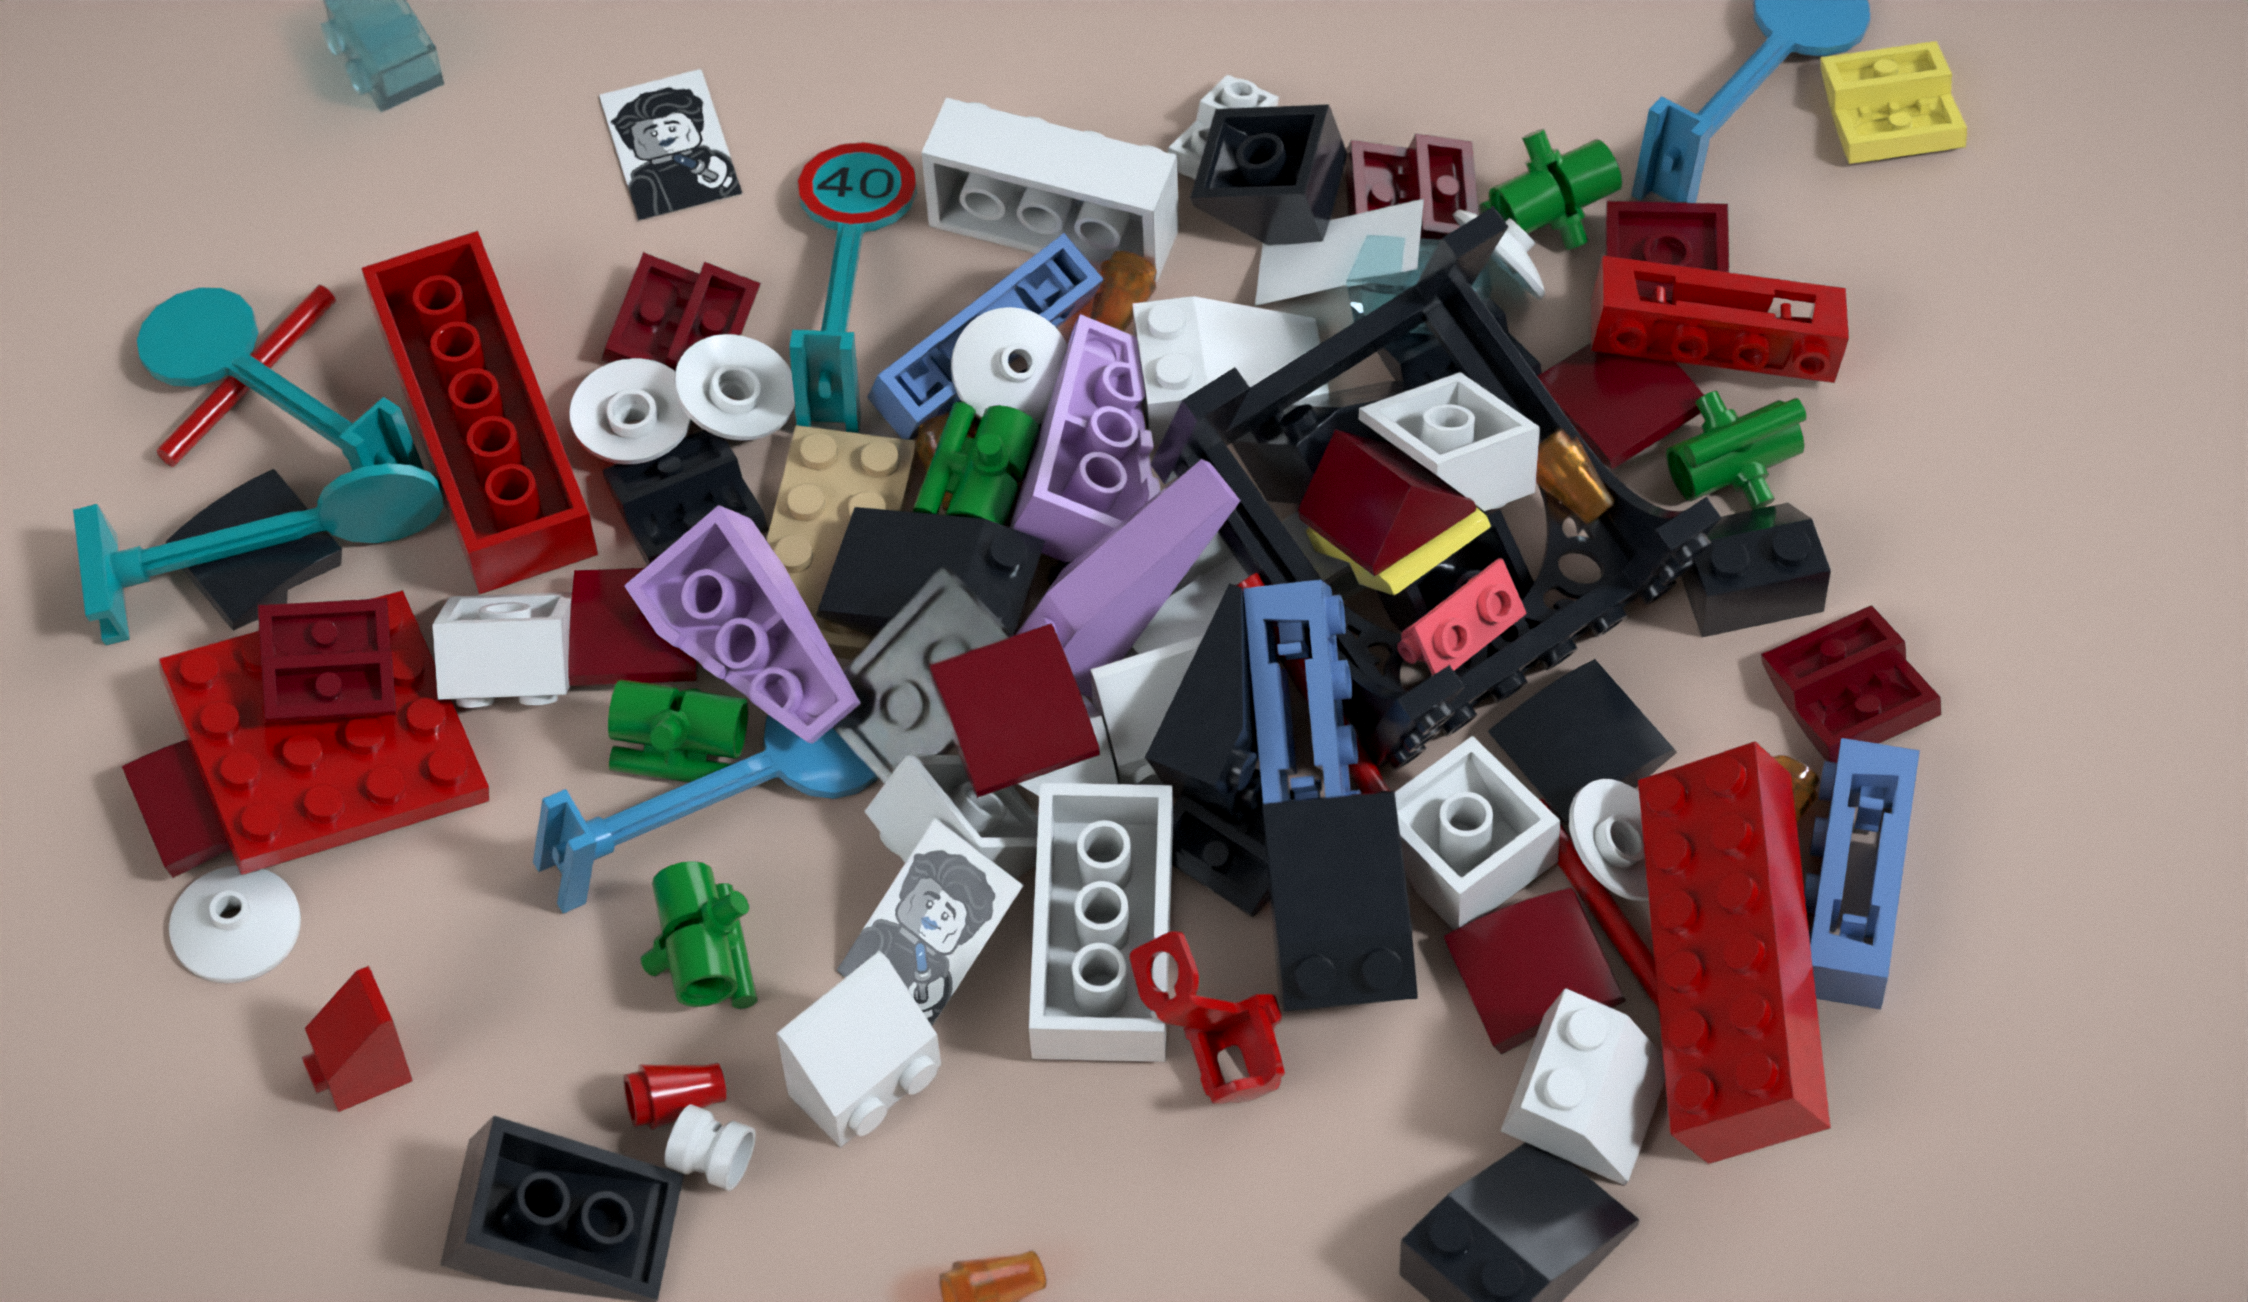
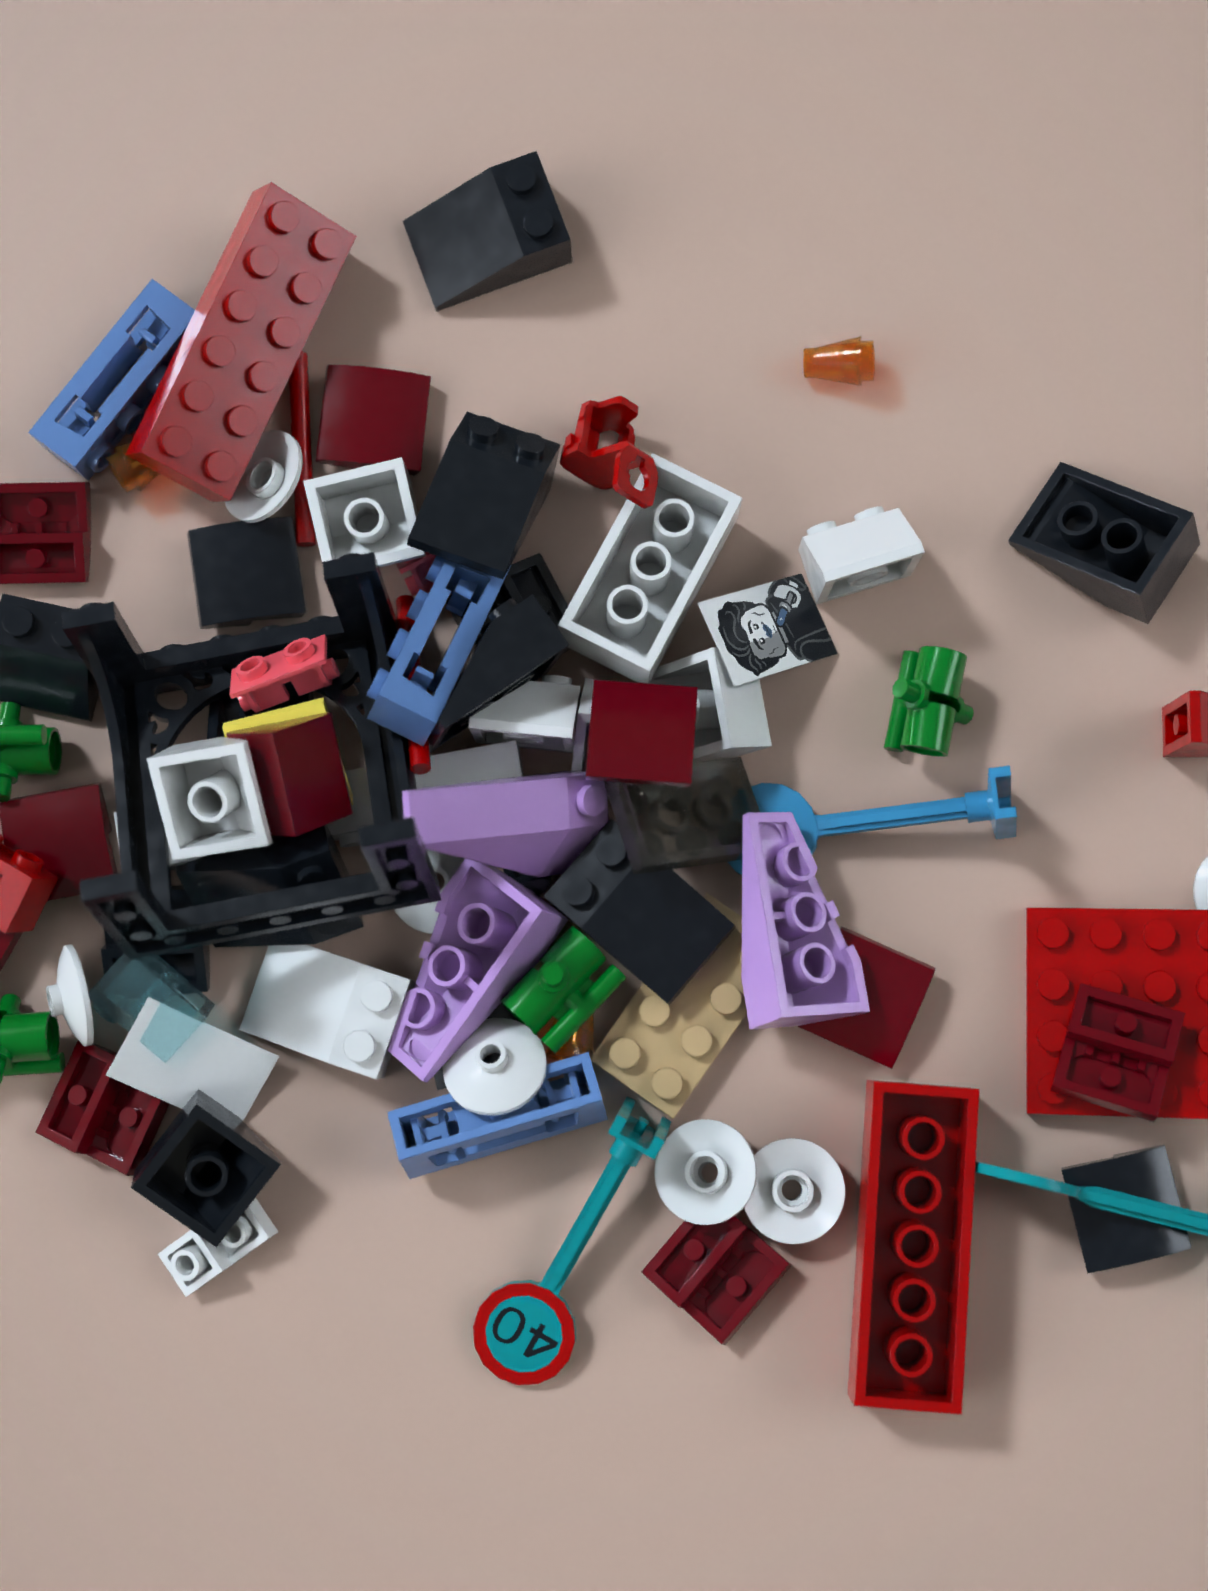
camera: 150 degrees left, 25 degrees up
(211, 335) = (1099, 1434): teal piece -> none
(231, 389) = (1072, 1388): red bar -> none
(503, 648) = (971, 1024): white slope -> none
(662, 1091) = (993, 600): red cone -> none
(670, 144) = (649, 1460): sticker -> none
(675, 730) = (875, 883): green pin -> none
(678, 490) = (783, 1092): black slope -> none
(707, 1146) = (985, 543): white wheel -> none
(1034, 180) = (381, 1229): white brick -> none
(1126, 281) = (368, 1120): clear orange cone -> none
(1571, 477) = (137, 743): clear orange cone -> none
(1588, 1087) = (395, 306): white slope -> none

